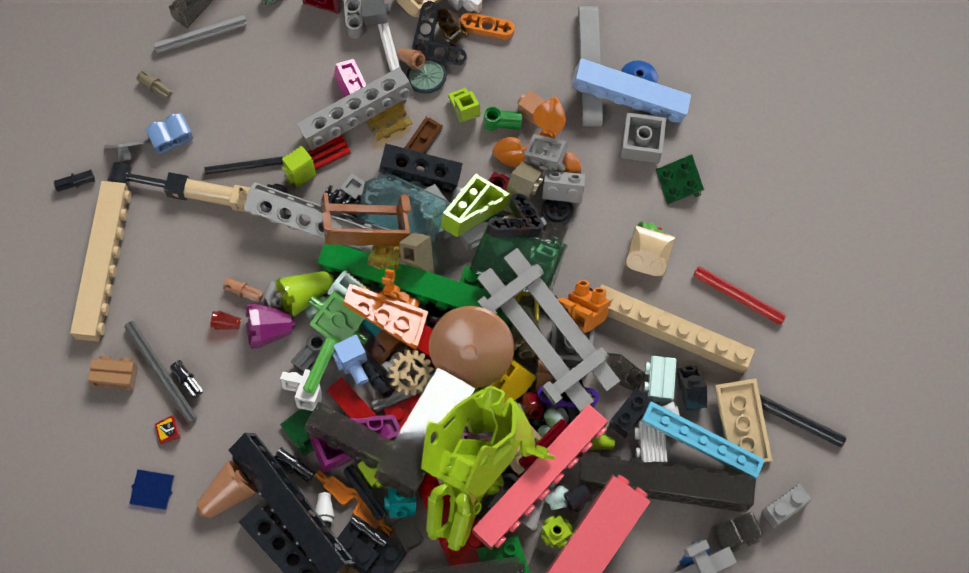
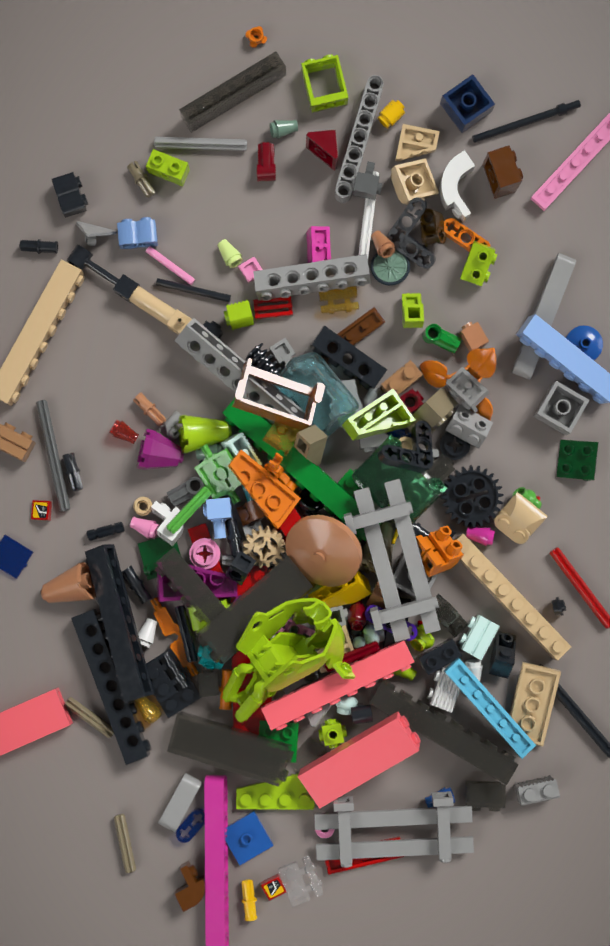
camera: 20 degrees right, 15 degrees up
(88, 122) = (69, 194): none -> black brick
(176, 64) = (167, 167): none -> lime brick
(212, 151) = (171, 266): none -> bright pink bar
(242, 425) = (105, 531): none -> black axle
(267, 119) = (230, 255): none -> yellowish green cone
(269, 380) = (138, 502): none -> tan plate
(271, 31) = (266, 168): none -> dark red piece
(283, 404) = (145, 527): none -> bright pink cone
(290, 127) = (248, 267): none -> bright pink tile
(357, 396) = (198, 546): none -> bright pink gear
(394, 401) = (240, 567): none -> black brick
(432, 545) = (226, 673): none -> orange pin
(482, 165) = (402, 379): none -> medium nougat brick
(508, 40) = (478, 263): none -> lime brick
(607, 263) = (476, 513): none -> black gear
(607, 402) = (422, 640): none -> lime animal
(621, 283) = (481, 535): none -> dark pink cone
(725, 320) = (558, 606): none -> black plate

